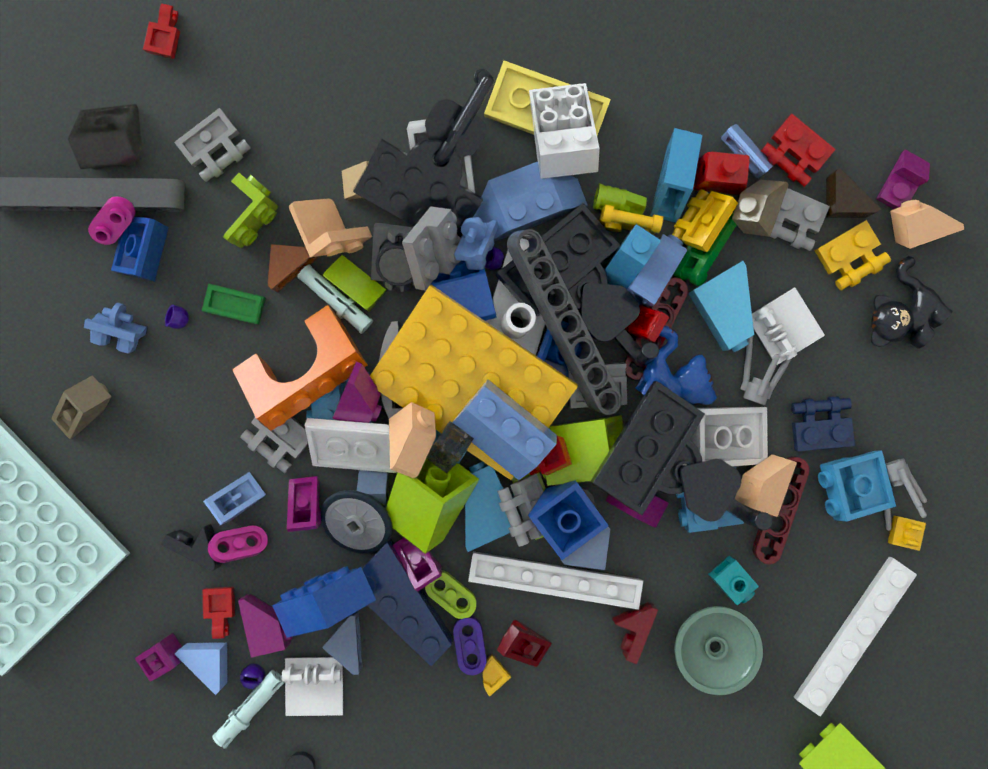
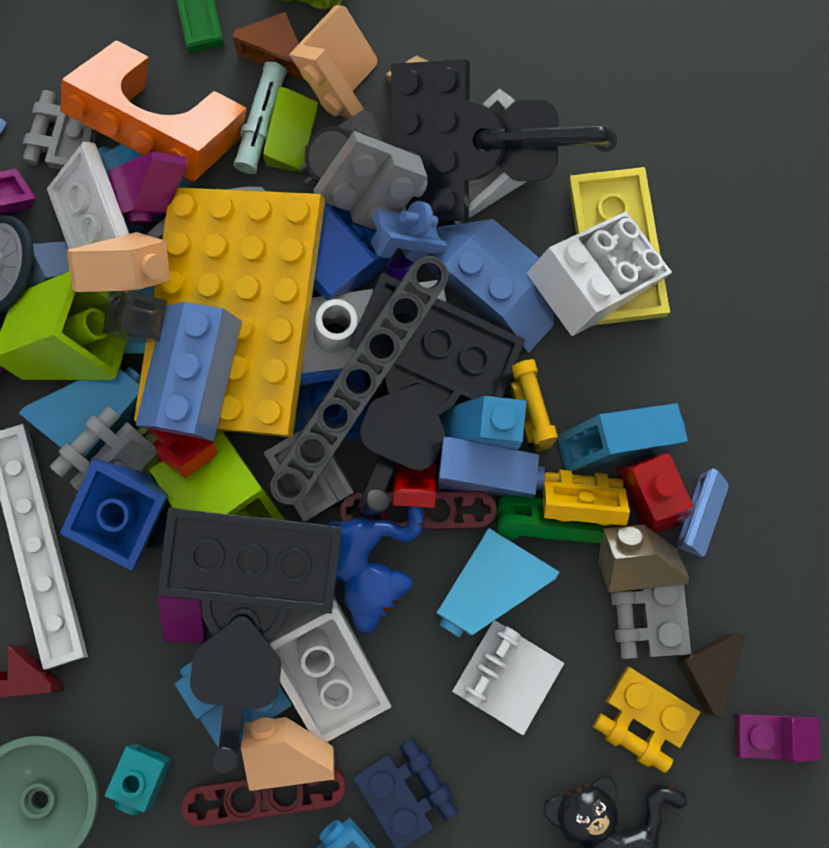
camera: 60 degrees right, 10 degrees down
(592, 553) = (91, 572): sand blue slope -> none
(619, 198) = (554, 385): lime hinge -> none
(759, 389) = (406, 682): light grey plant -> none
(803, 145) = (749, 581): red plate -> none
(920, 223) = (734, 786): light nougat slope -> none

